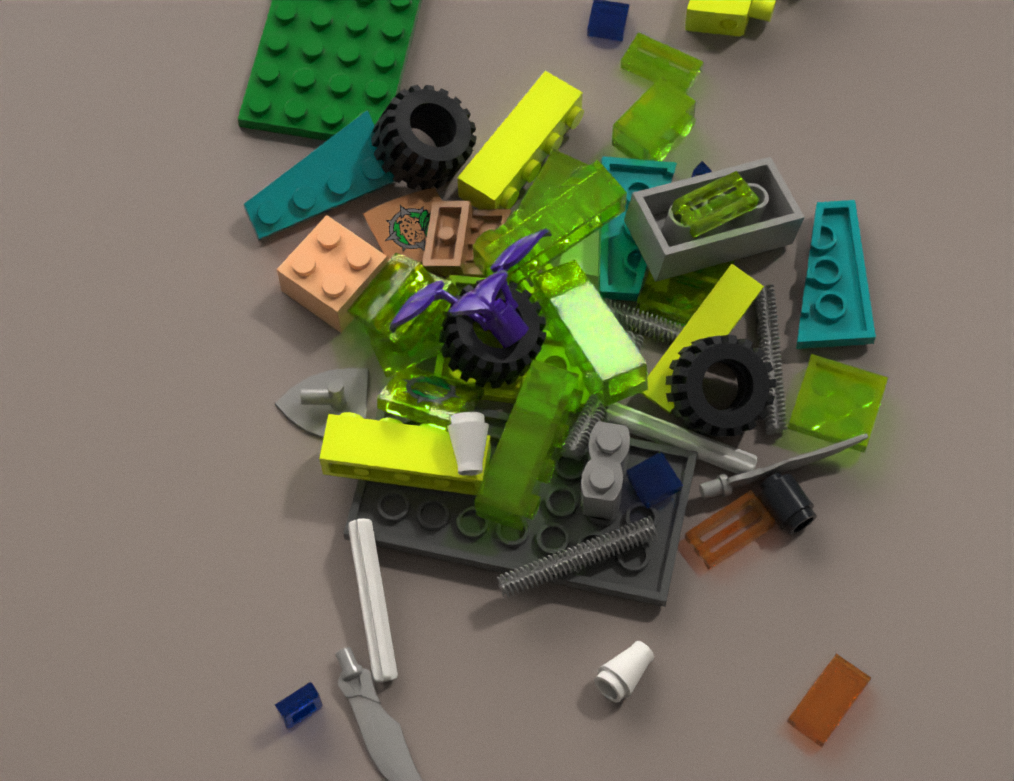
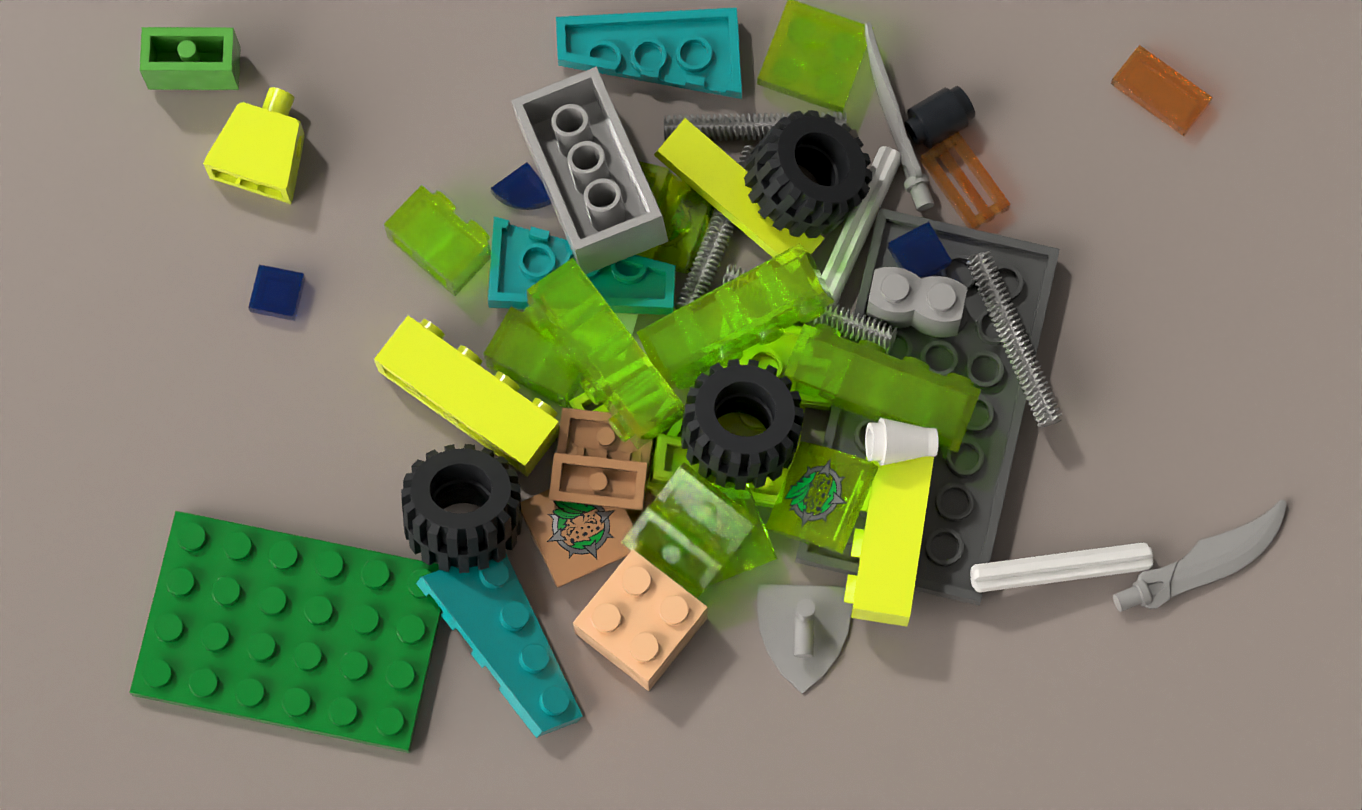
camera: 90 degrees left, 10 degrees up
(299, 705) = (1186, 647): clear blue tile -> none
(499, 316) = (757, 395): dark purple plant -> none
(622, 673) = (1139, 299): white cone -> none
(654, 68) = (327, 263): clear neon green tile -> none
(683, 204) = (609, 187): clear neon green tile -> none

